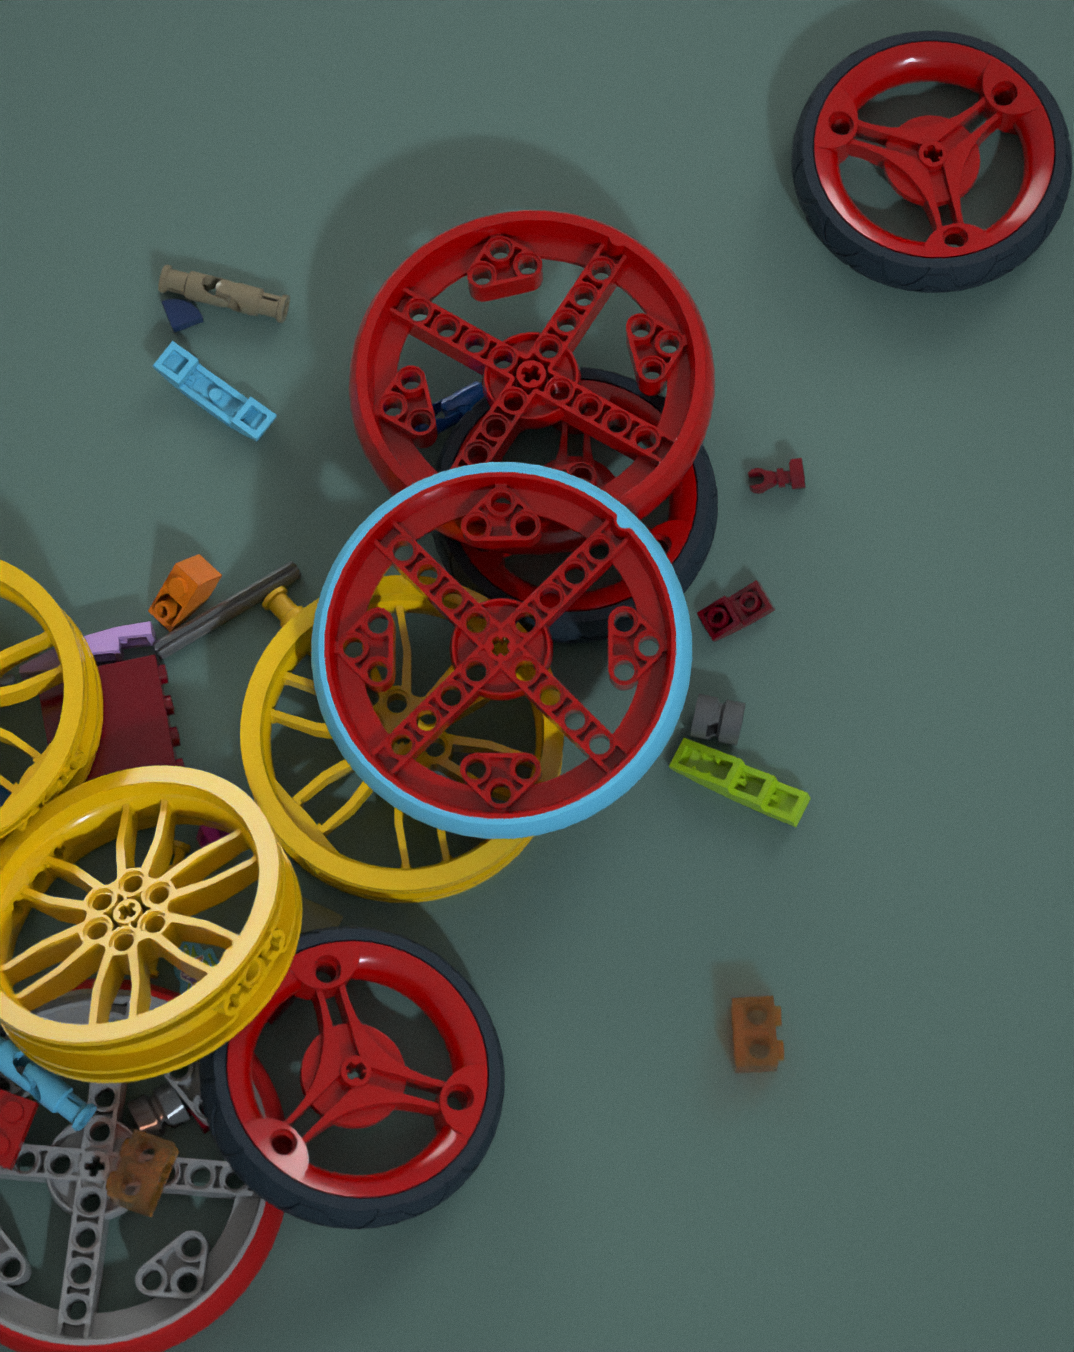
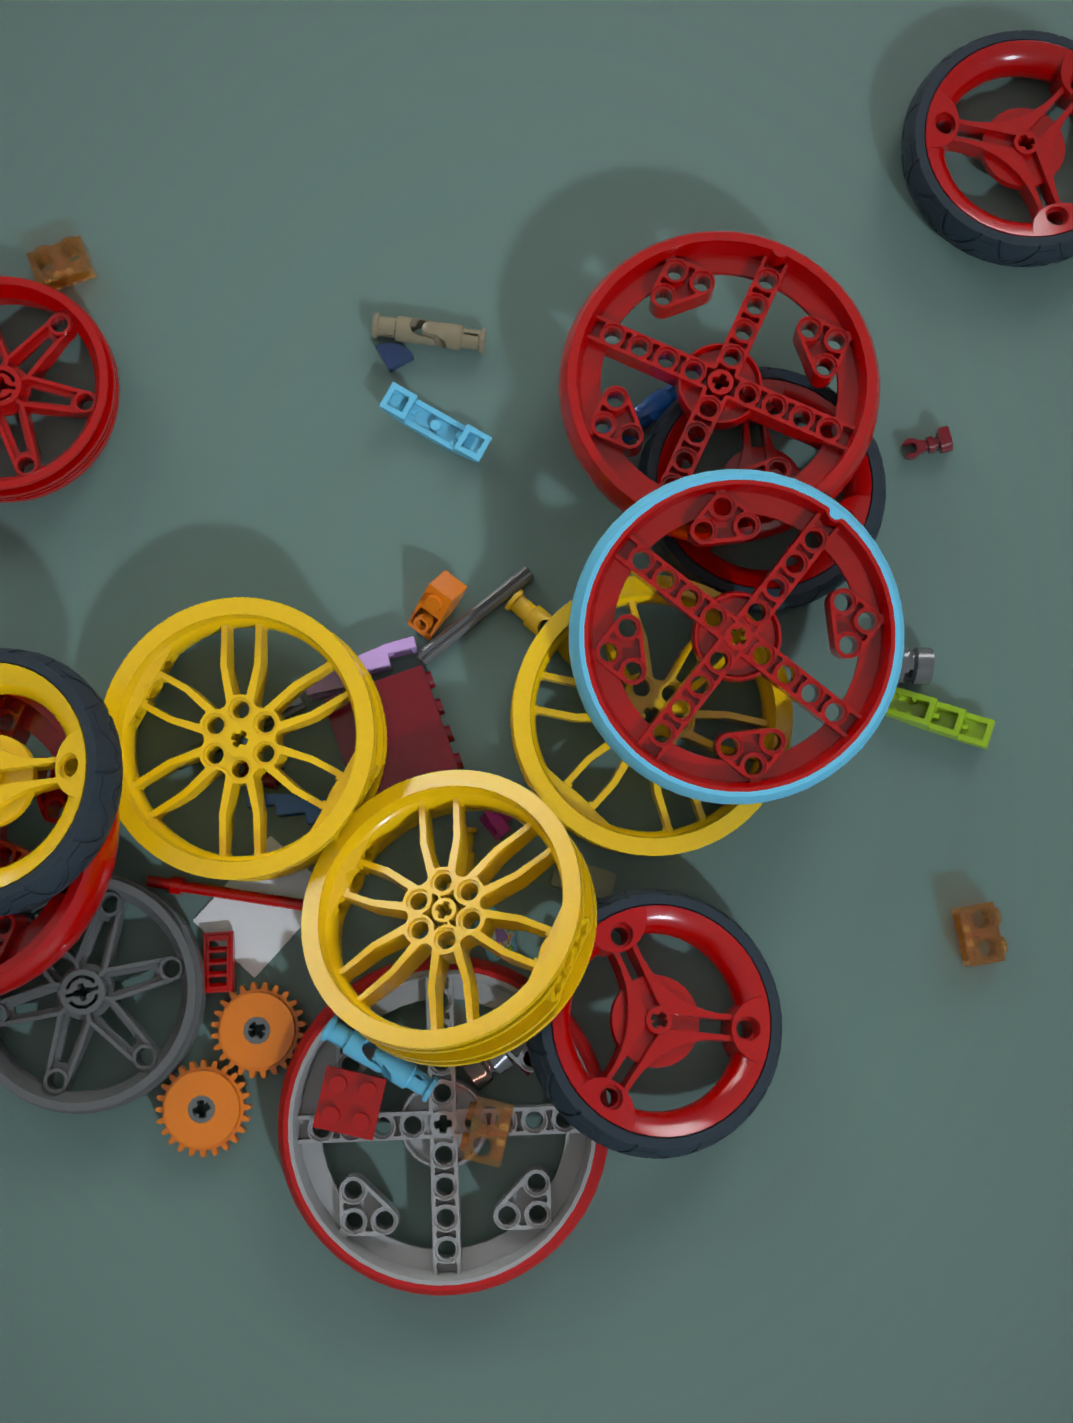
camera: 15 degrees left, 10 degrees up
(736, 612) = (913, 563): dark red slope -> none

